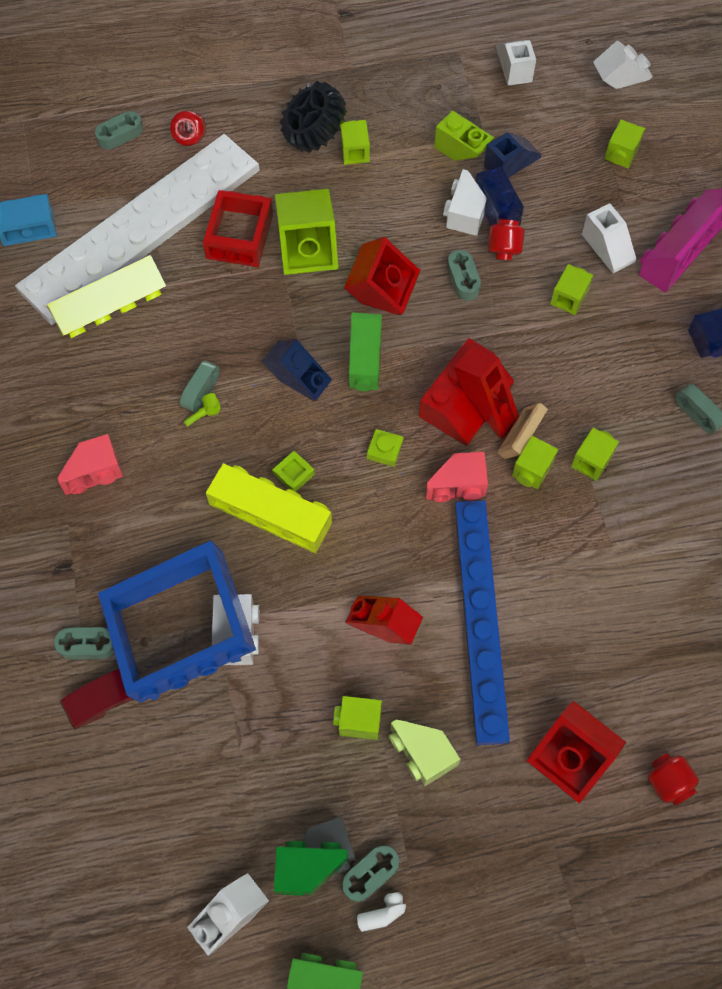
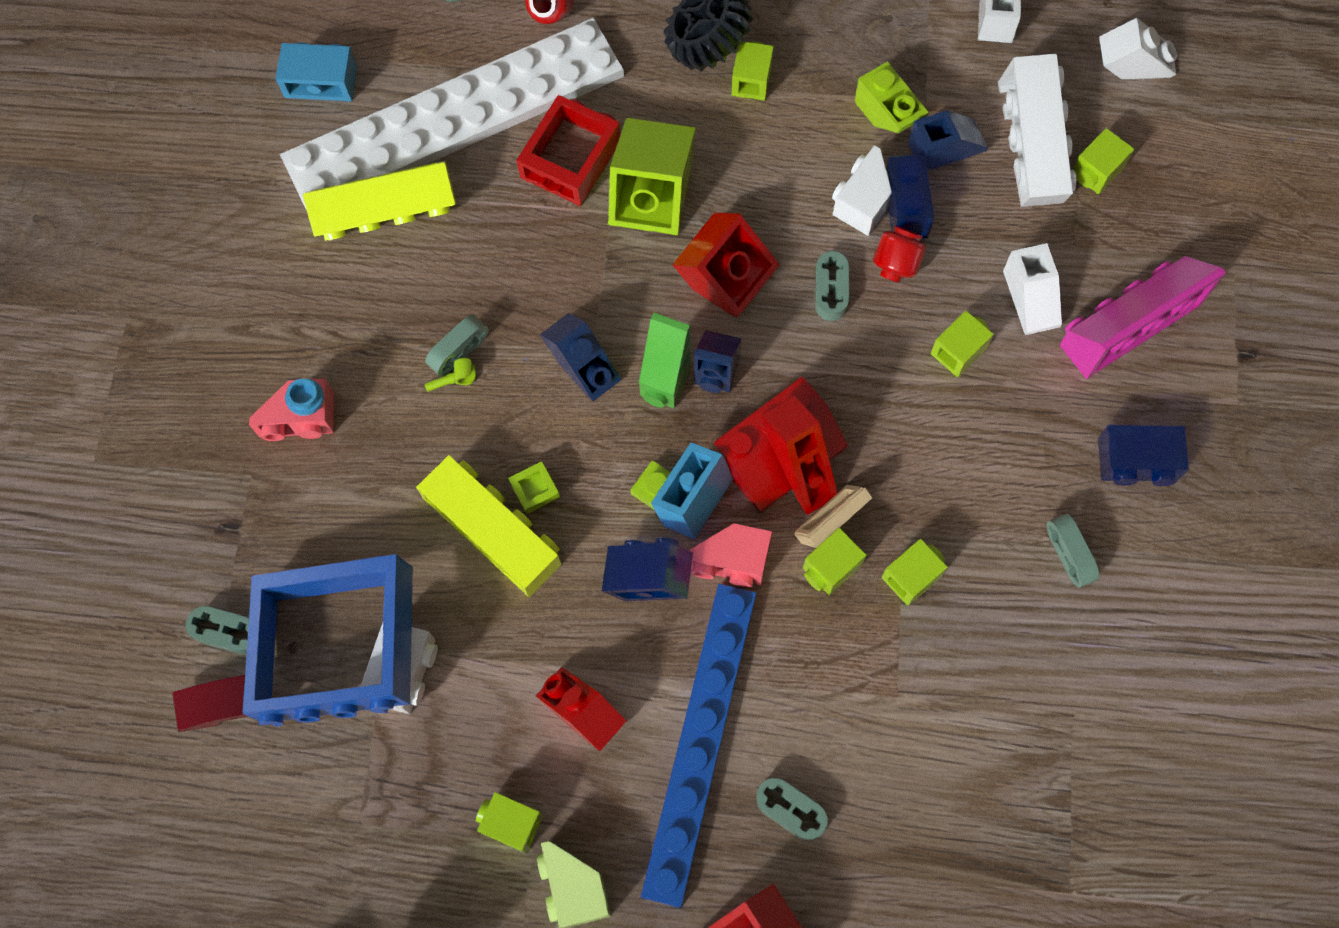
camera: 20 degrees right, 5 degrees up
(97, 449) = (304, 397): none -> dark azure plate
(401, 346) = (716, 361): none -> dark blue slope
(402, 504) = (647, 570): none -> clear blue brick
(415, 439) = (692, 490): none -> dark azure brick
(567, 639) = (797, 801): none -> sand green beam
(573, 131) = (1038, 129): none -> white wedge

